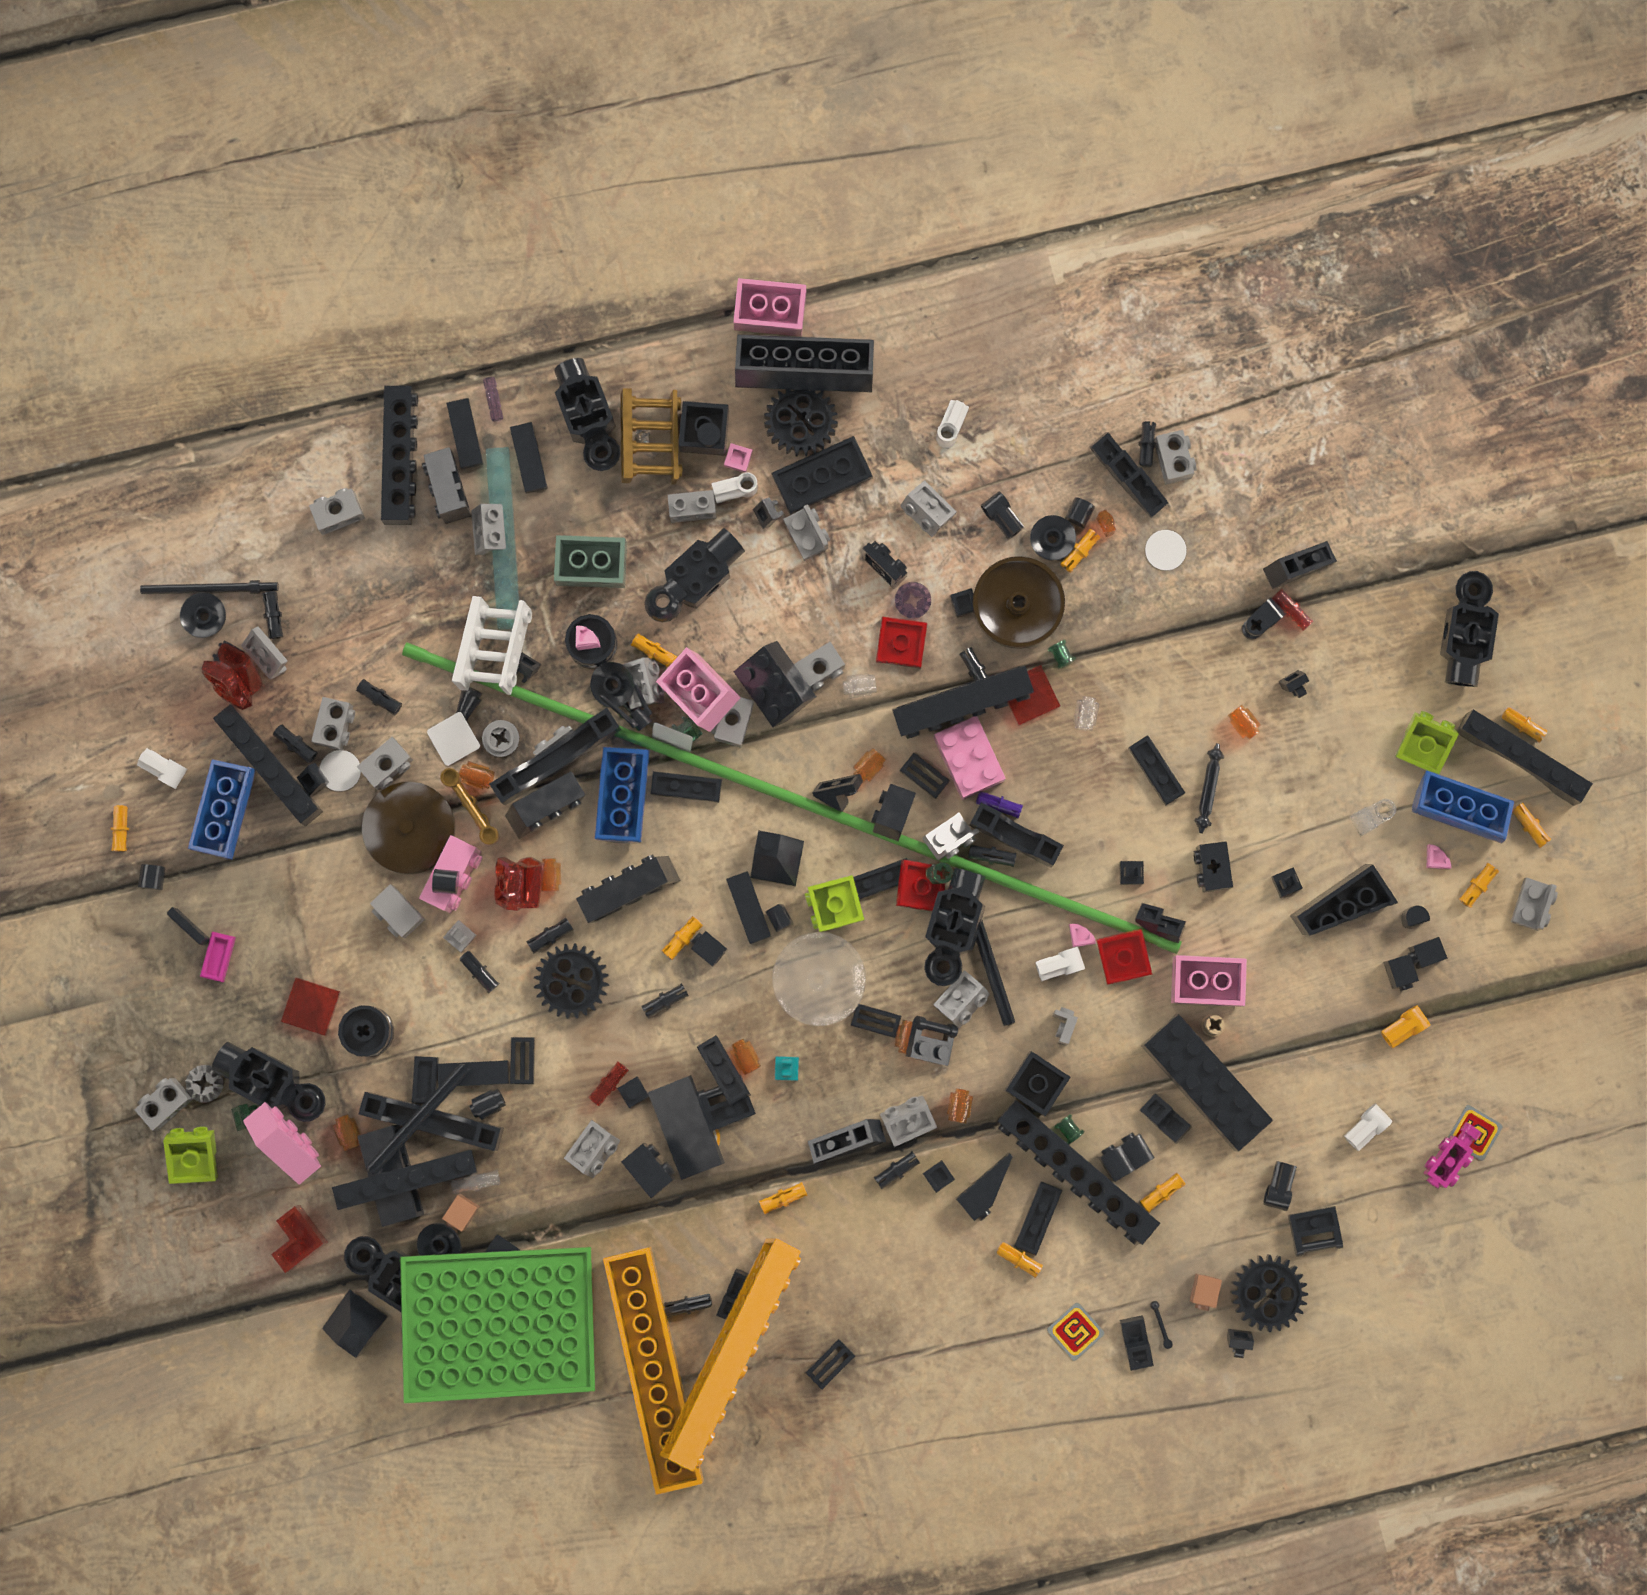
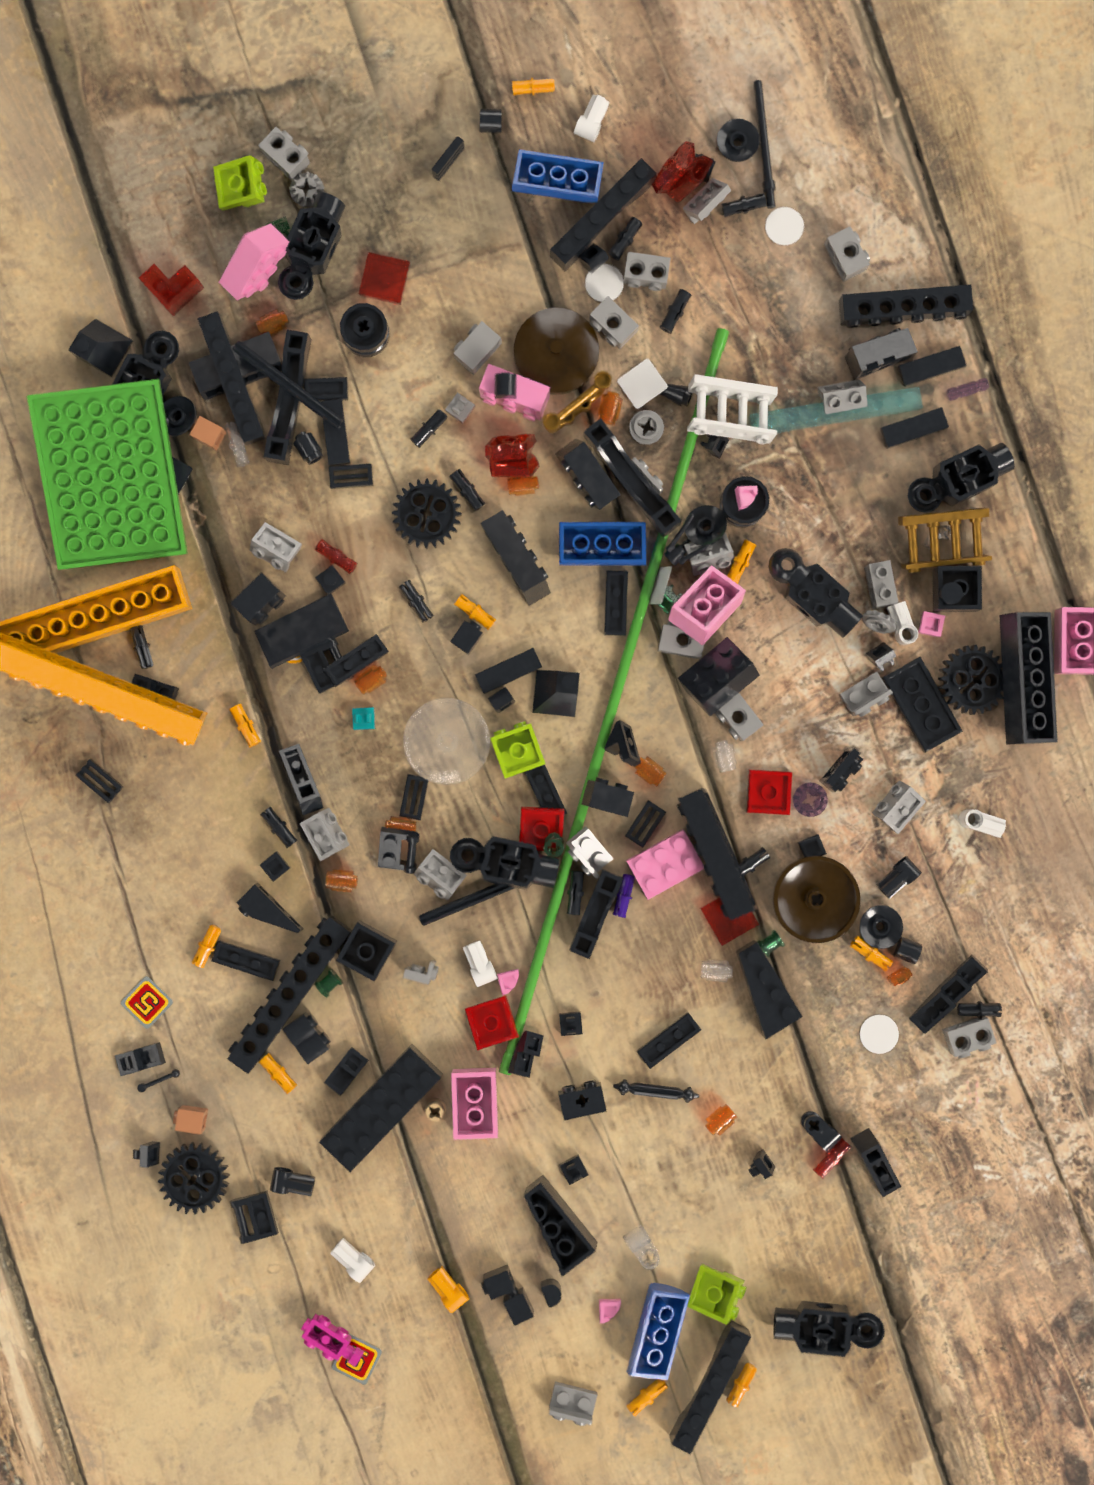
camera: 85 degrees right, 5 degrees up
(217, 956) = (423, 189): dark pink tile -> none
(299, 574) = (784, 226): none -> white sticker
(590, 561) = (820, 494): sand green brick -> none
(731, 511) = (879, 622): none -> light grey gear
(1115, 661) = (769, 996): none -> black wedge
(1478, 885) = (586, 1350): light orange pin -> none

